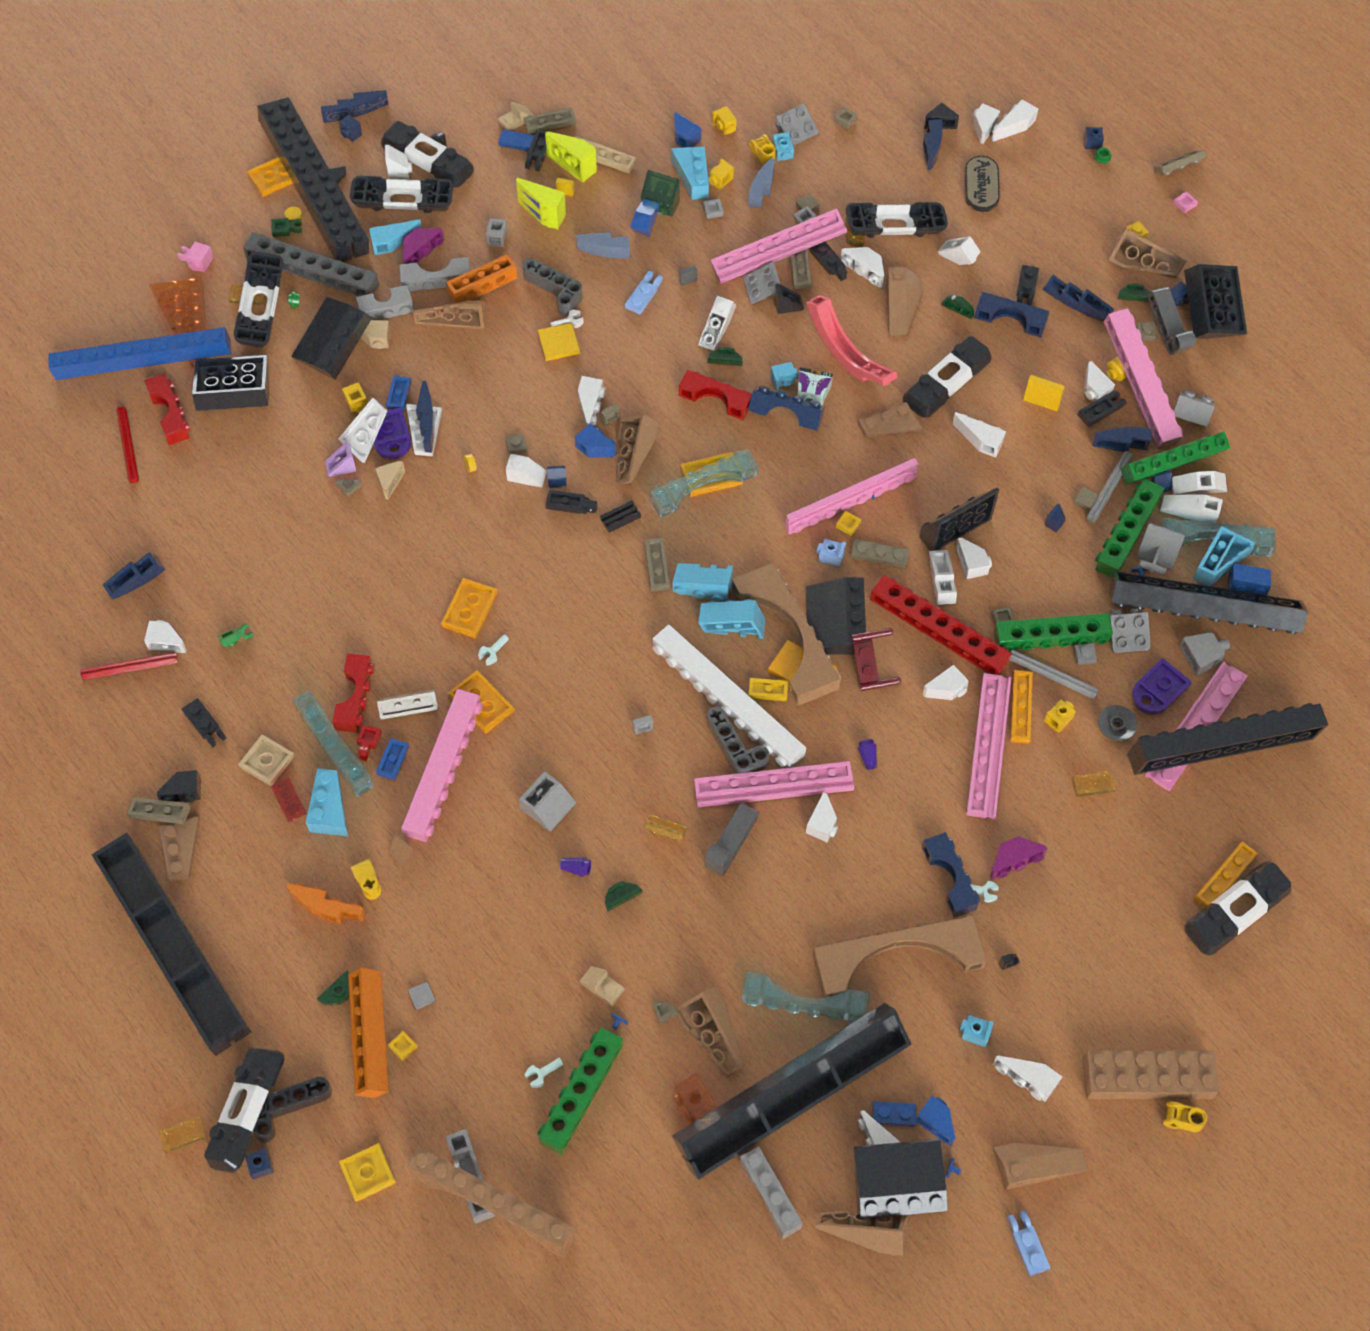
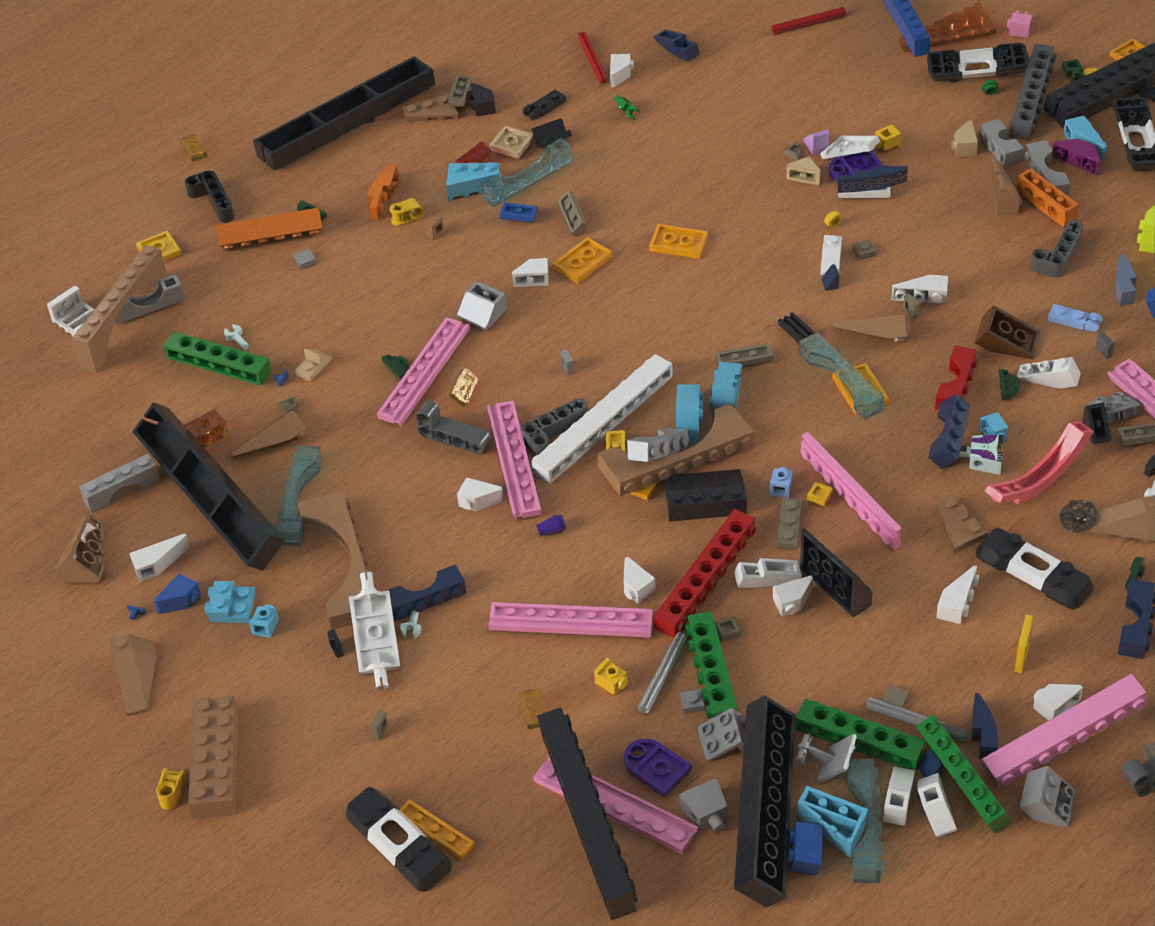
camera: 90 degrees right, 15 degrees down
(172, 424) = (833, 40): red arch -> none
(231, 383) = (883, 62): black slope -> none
(232, 1136) = (229, 171): black piece -> none
(263, 1168) = (168, 189): dark blue plate -> none
(268, 716) = (550, 132): none -> black panel
(331, 337) = (946, 112): black slope -> none
(348, 714) = (598, 181): red arch -> none
(367, 739) = (535, 195): red plate -> none
(398, 392) = (912, 163): blue plate -> none
(402, 1045) = (262, 254): yellow tile -> none
(441, 766) = (513, 238): bright pink brick -> none
(469, 1283) = (69, 310): none -> white plate
(492, 650) = (633, 259): light aqua bar -> none
(496, 232) = (1114, 203): light grey brick -> none
(498, 748) = (531, 273): none -> white slope
(558, 342) = (993, 264): yellow tile -> none
(570, 319) = (1023, 270): white bar -> none
(570, 502) = (803, 290): black hinge -> none
(579, 865) = (423, 335): dark purple cone -> none
(594, 443) = (876, 297): blue slope -> none
(633, 867) = (423, 371): none -> bright pink plate
(662, 347) = (1007, 334): none -> reddish brown slope
(806, 647) = (651, 448): none -> light grey arch
(866, 660) = (651, 511): dark red plate -> none
(892, 333) = (1078, 516): none -> clear smoke wheel
(894, 1113) = (189, 564): blue plate -> none
(900, 1179) = (118, 561): black slope -> none
(948, 1067) = (230, 602): none -> medium azure plate
(1007, 918) = (374, 631): none -> white plate
(1016, 855) = (446, 642): magenta slope -> none
(1021, 706) = (621, 648): light orange tile -> none
(1028, 1245) = (61, 669): light blue hinge -> none
(1033, 1076) = (216, 665): white slope -> none
(1055, 518) = (861, 667): dark blue slope -> none
(1101, 408) = (1022, 706): black hinge -> none
(1113, 919) = (379, 725): none -> dark tan tile
(1122, 717) = (606, 719): dark grey dish -> none

